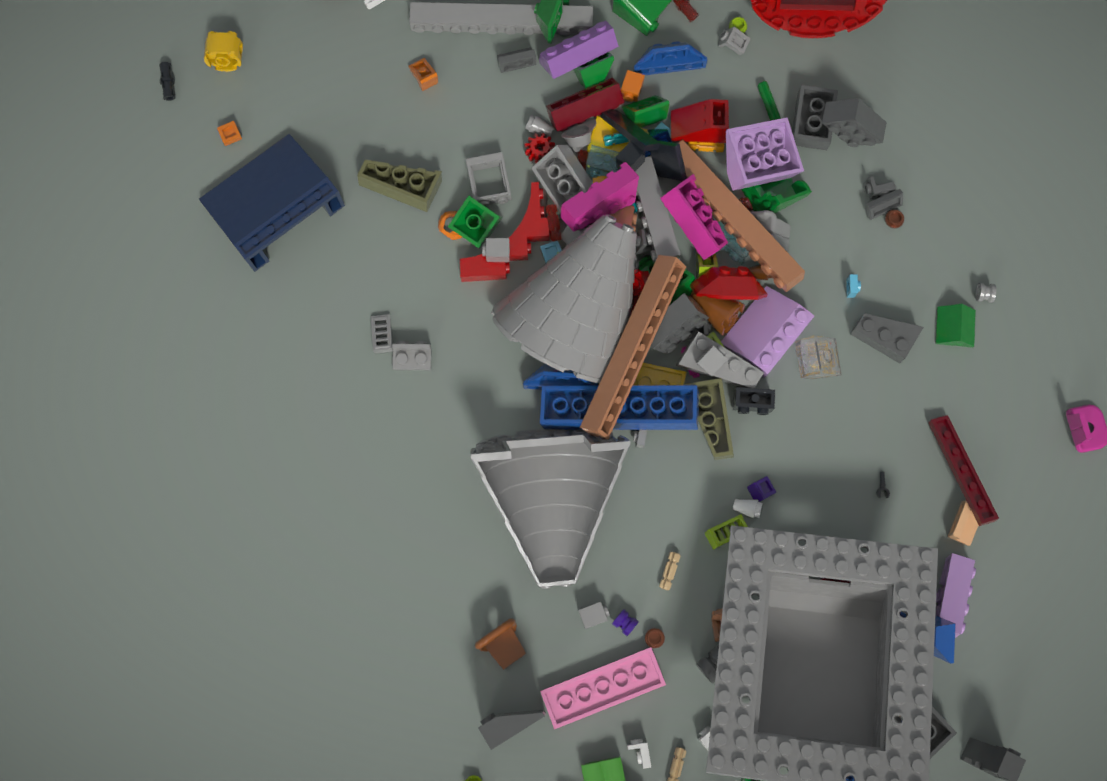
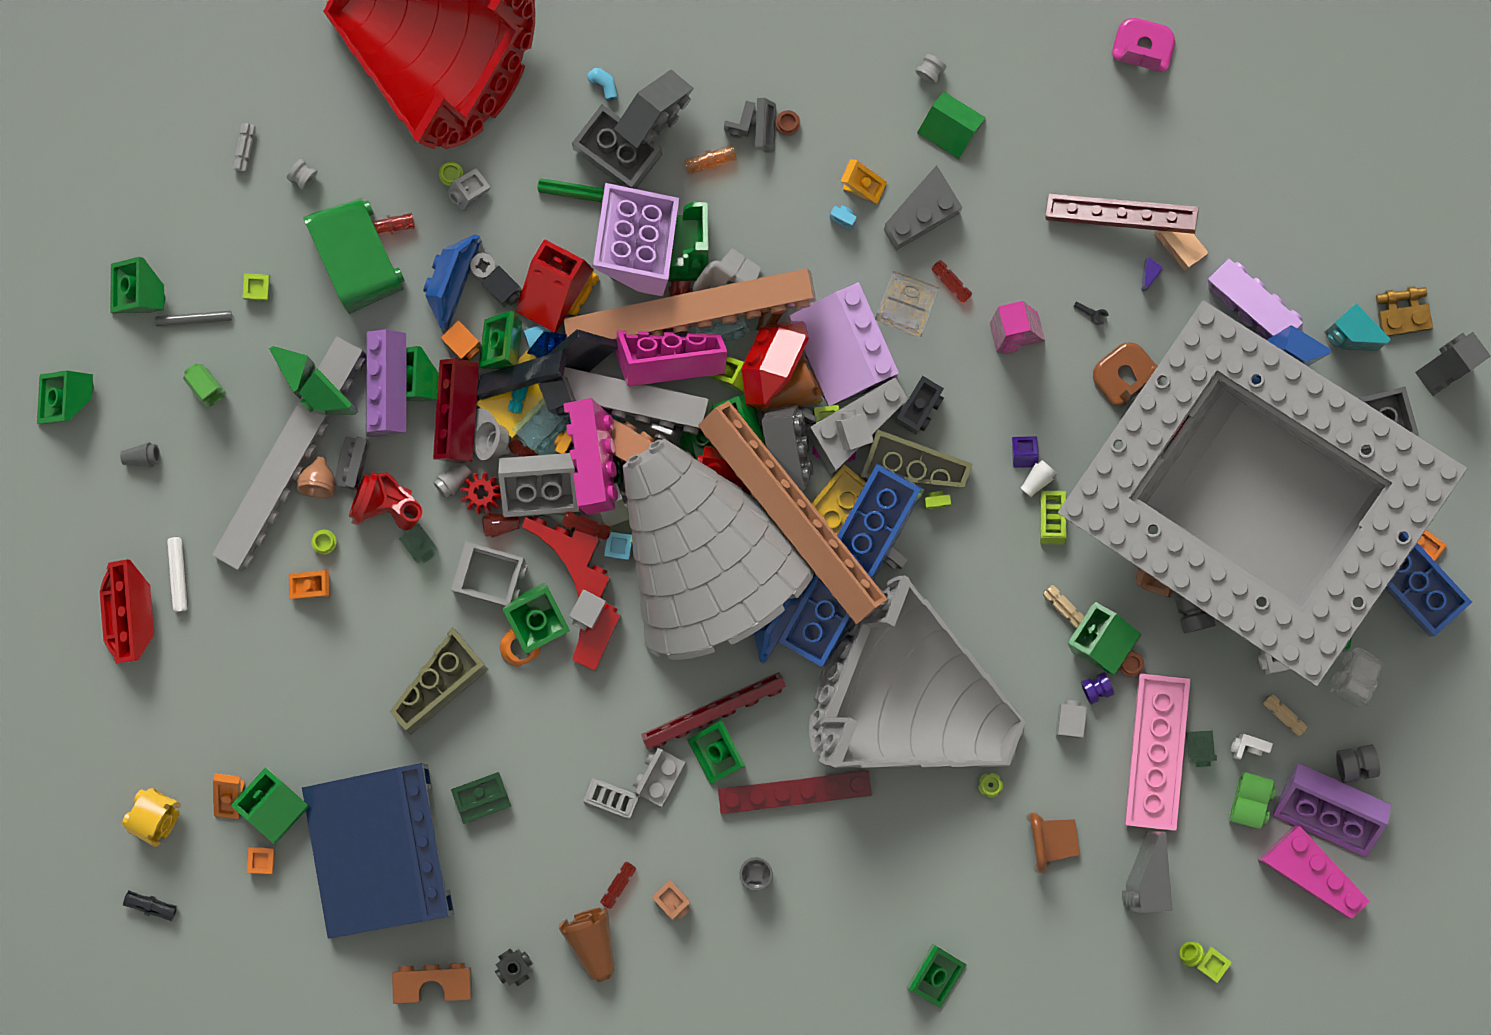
camera: 65 degrees left, 5 degrees up
(209, 293) = (409, 982): none -> dark orange arch
(239, 331) = (523, 962): none -> pearl dark grey brick
(261, 91) = (225, 791): none -> orange slope
(266, 118) = (270, 805): none -> green slope
(277, 367) = (591, 942): none -> dark orange cone
(326, 367) = (618, 885): none -> clear red axle
(332, 407) = (672, 900): none -> nougat bracket
(339, 249) = (481, 797): none -> dark green plate
(369, 611) = (936, 976): none -> green slope
(378, 452) = (755, 873): none -> dark grey wheel
(447, 452) = (794, 792): none -> dark red plate
(448, 386) = (716, 752): none -> green slope
(456, 68) = (324, 542): none -> lime plate
(480, 374) = (722, 707): none -> dark red plate
(486, 127) = (419, 544): none -> clear green bracket
(493, 43) = (317, 480): none -> nougat helmet
(504, 85) = (382, 495): none -> red piece
(520, 577) = (990, 778): none -> lime plate
(524, 169) = (498, 524): none -> clear red cone
(621, 718) = (1200, 748): none -> clear green bracket
(661, 608) = (1104, 639): none -> green slope
(682, 92) = (502, 287): none -> black brick
(686, 79) = (484, 269): none -> light grey wheel
(695, 445) = (937, 500): none -> lime plate
(841, 182) = (710, 159): none -> clear orange pin
(845, 436) = (1015, 327): none -> dark pink wedge
(845, 518) = (1107, 378): none -> dark orange piece
(850, 380) = (951, 281): none -> clear red axle
(855, 85) = (601, 77): none -> medium azure arm
(883, 286) = (863, 182): none -> light orange slope
(932, 513) = (1150, 273): none -> dark purple slope
(975, 678) = (1356, 331): none -> teal slope
(1003, 711) = (1406, 319): none -> pearl gold plate

